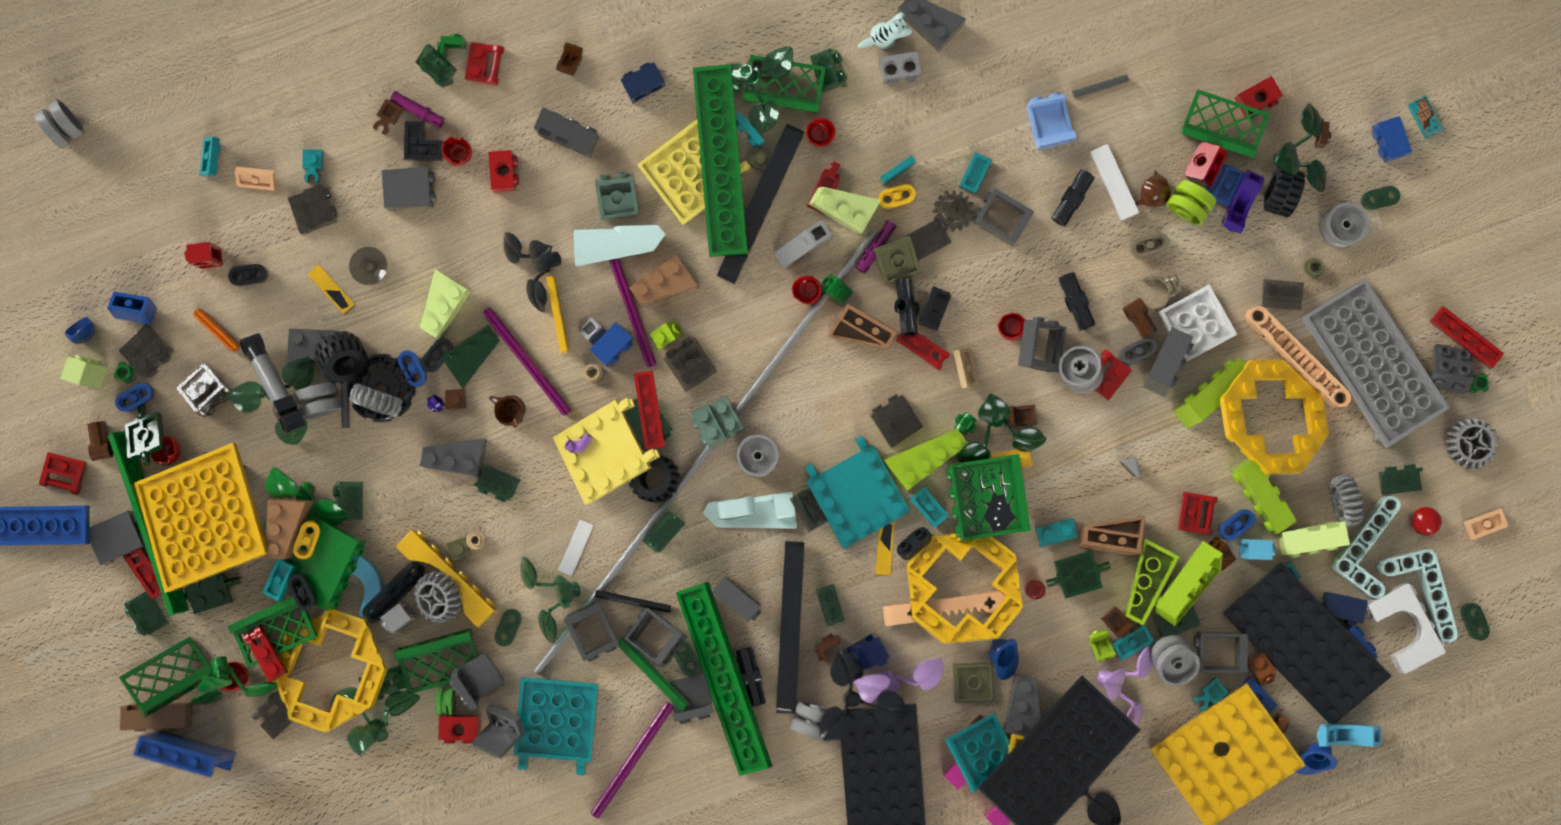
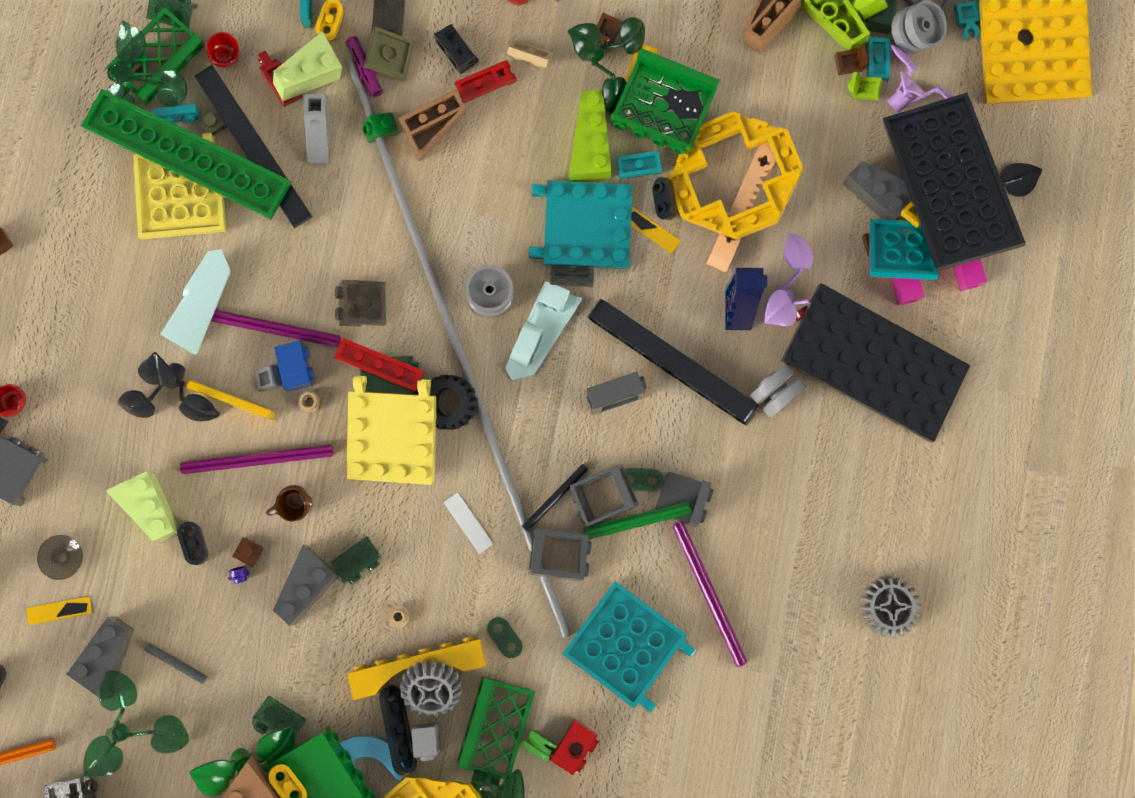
camera: 65 degrees left, 5 degrees down
(283, 403) = (136, 724): piece -> none
(317, 400) = (157, 690): light grey wheel -> none
(338, 346) = (114, 637): black tyre -> none
(375, 400) = (194, 628): light grey gear -> none
(391, 381) = (201, 615): black plate -> none
(414, 368) = (190, 576): blue plate -> none
(458, 549) = (397, 639): olive plate -> none
(470, 354) = (213, 510): dark green wing -> none
(476, 680) = (537, 700): dark grey bracket -> none
(497, 161) = (45, 364): red brick -> none
(500, 733) = (605, 707): dark grey bracket -> none
(565, 591) = (505, 554): clear green plant -> none
(566, 132) = (61, 284): dark grey wedge -> none
(578, 446) = (371, 454): medium lavender arm -> none
(616, 195) = (155, 274): sand green plate -> none
(642, 82) = (64, 184): dark blue brick -> none
(663, 282) = (267, 278): medium nougat wedge -> none
(663, 532) = (506, 423): clear green panel -> none
(667, 334) = (318, 308): lime bracket -> none
(717, 422) = (433, 311): sand green plate -> none
(724, 679) = (685, 453): green plate -> none
(751, 676) = (698, 428): black piece -> none
(806, 289) = (362, 151): red hair -> none
(828, 642) = (709, 335): reddish brown bracket -> none
(830, 604) = (674, 312): clear green bracket -> none
(834, 722) = (792, 367): black plant -> none
(896, 420) = (537, 146): clear smoke plate -> none
(906, 307) = (438, 70): black piece -> none
(965, 423) = (580, 82): green gear -> none
(973, 682) = (829, 224): olive tile -> none
(1005, 657) = (820, 180): blue piece -> none
(1029, 587) = (773, 119): clear red wheel -> none
(1056, 532) = (734, 66): teal plate -> none
(1078, 574) = (785, 69): dark green plate -> none

